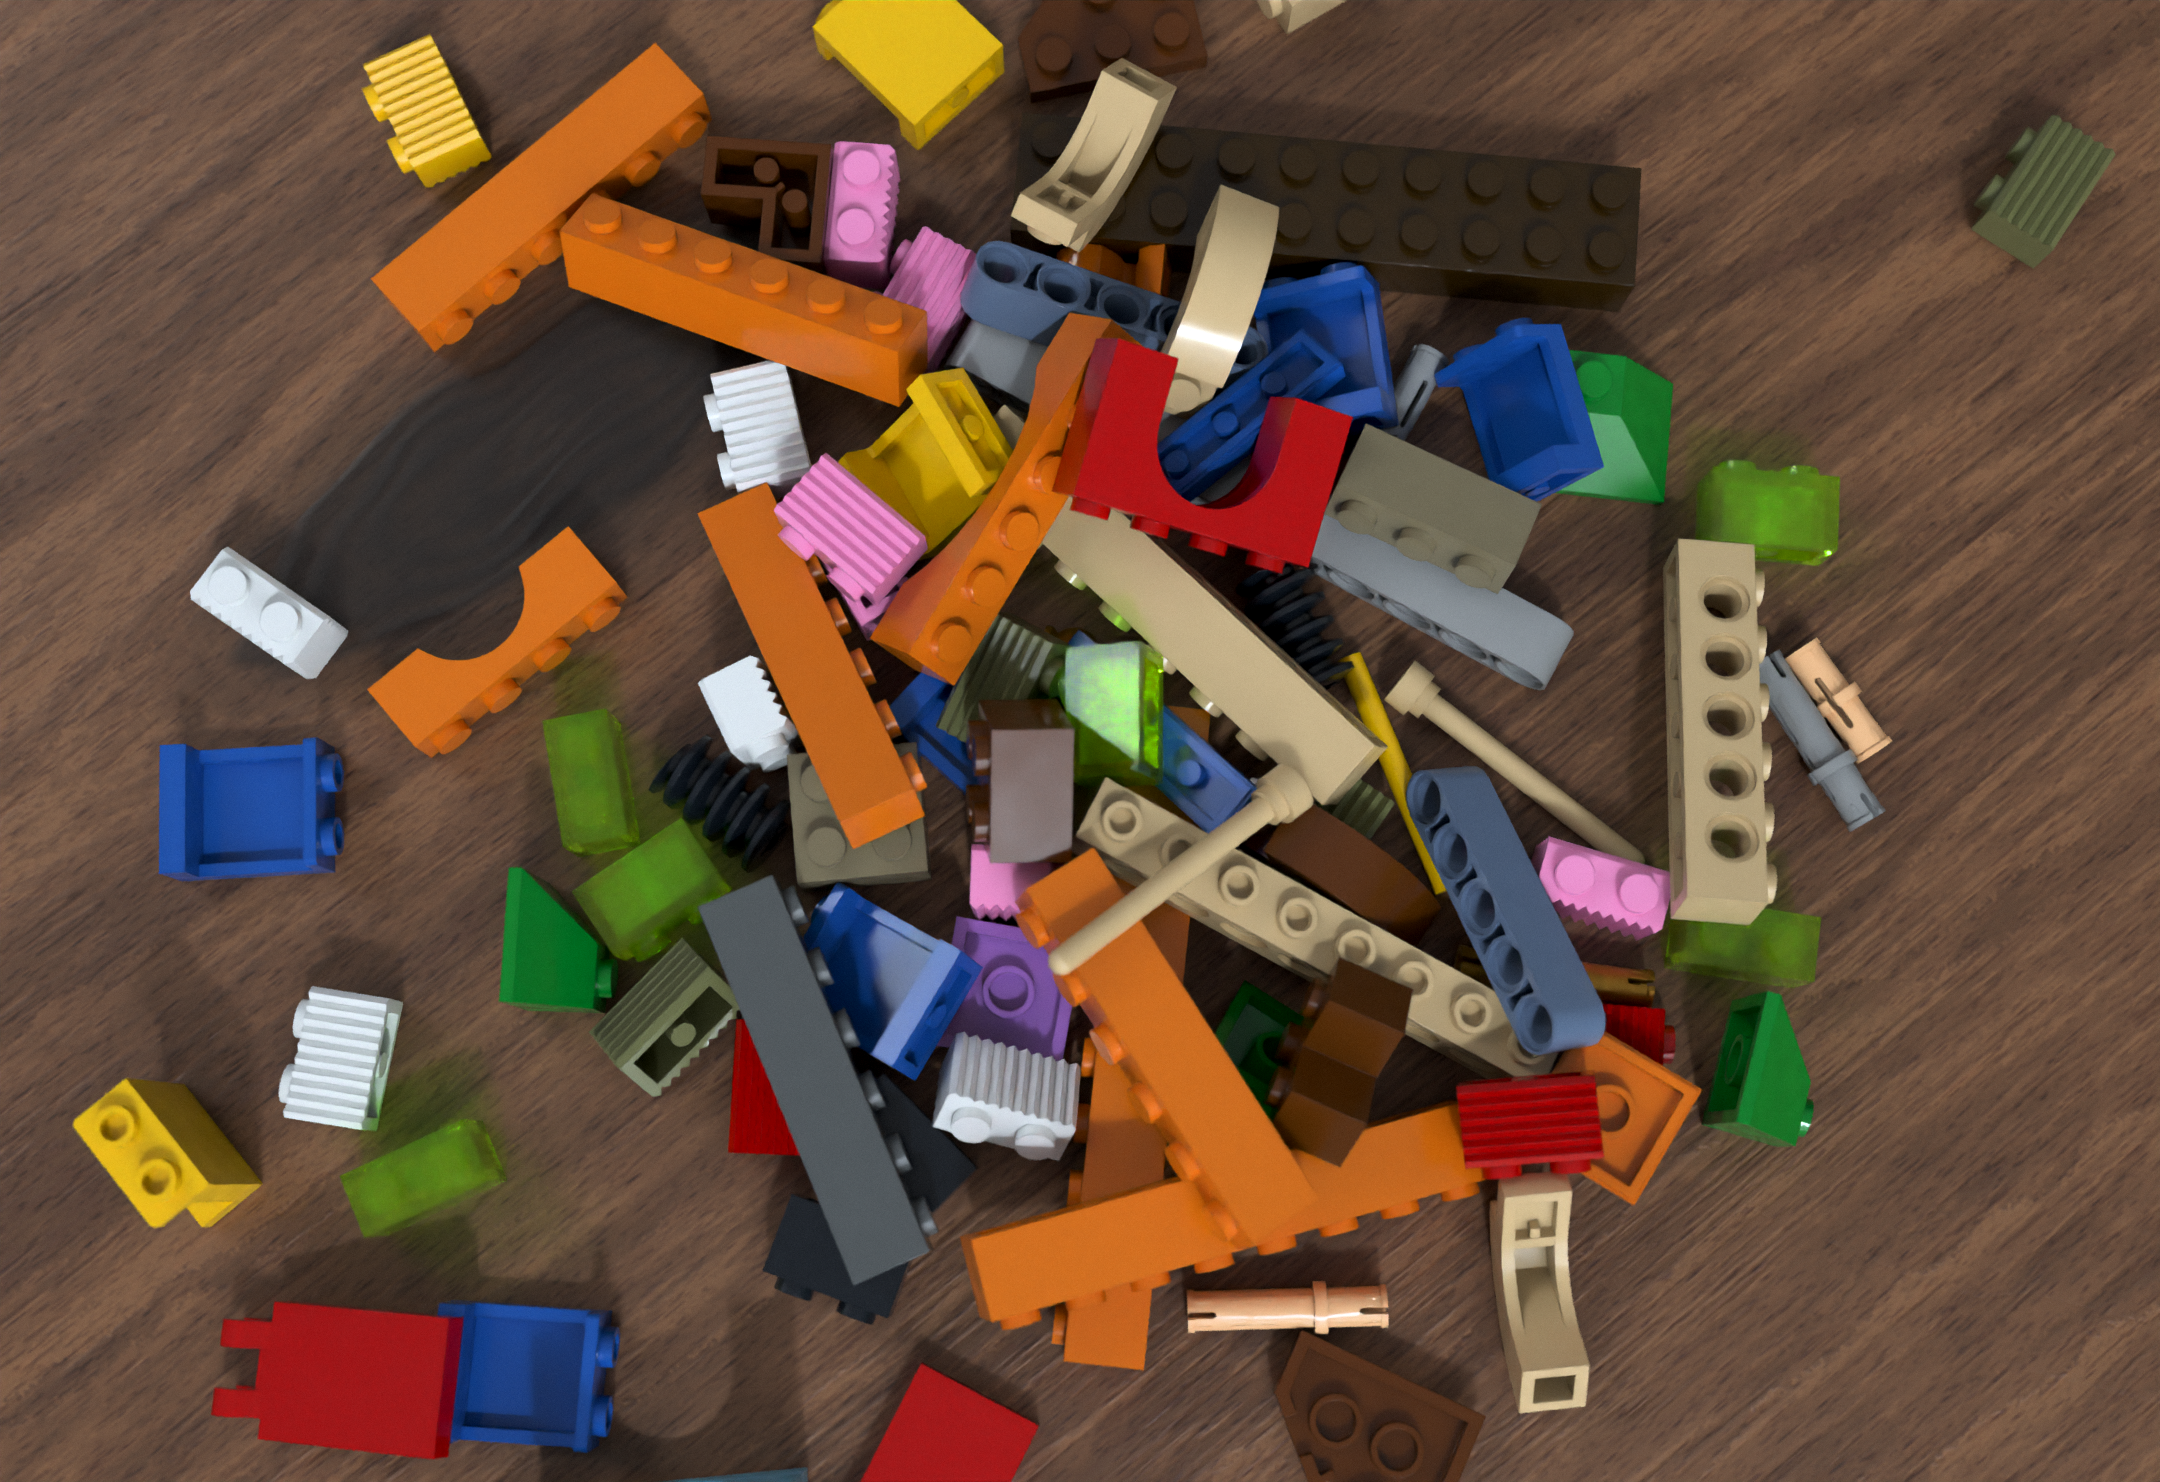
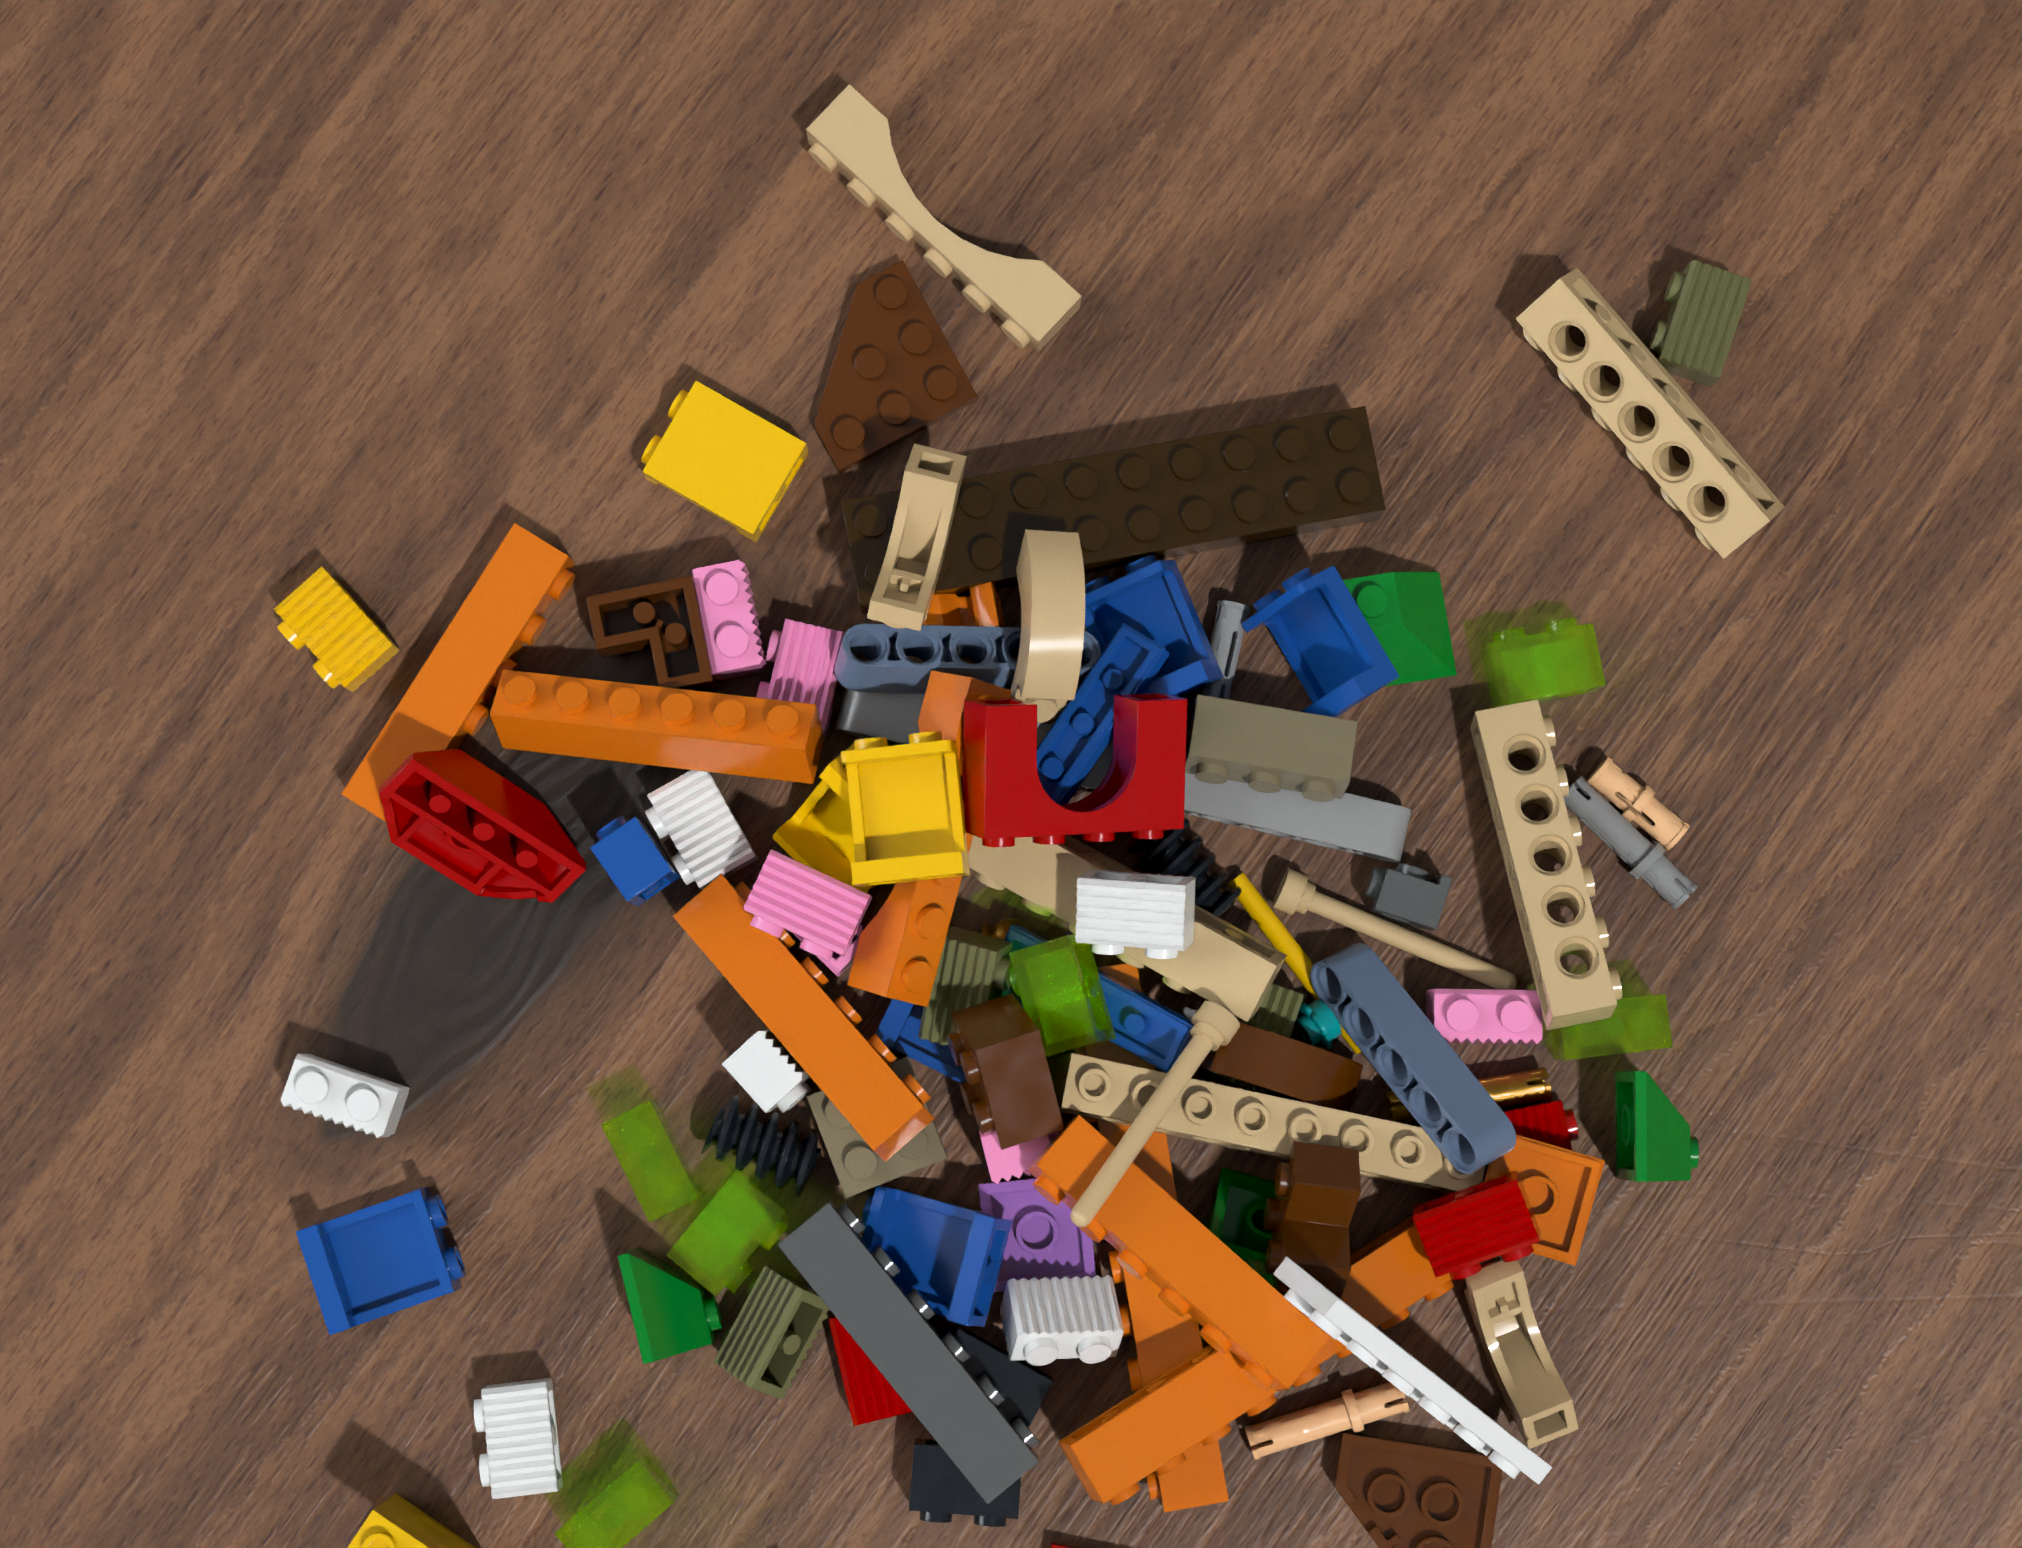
camera: 20 degrees left, 5 degrees up
(441, 698) = (581, 1010): orange arch -> none
(505, 352) = (478, 828): none -> red wedge
(673, 440) = (634, 859): none -> blue brick
(992, 443) = (906, 810): none -> yellow panel
(1225, 637) = (1135, 912): none -> white brick
(1402, 841) = (1317, 1024): none -> teal plate
(1404, 1271) = (1408, 1373): none -> white plate
(1544, 729) = (1407, 895): none -> dark grey brick
(2051, 395) = (1677, 417): none -> tan brick

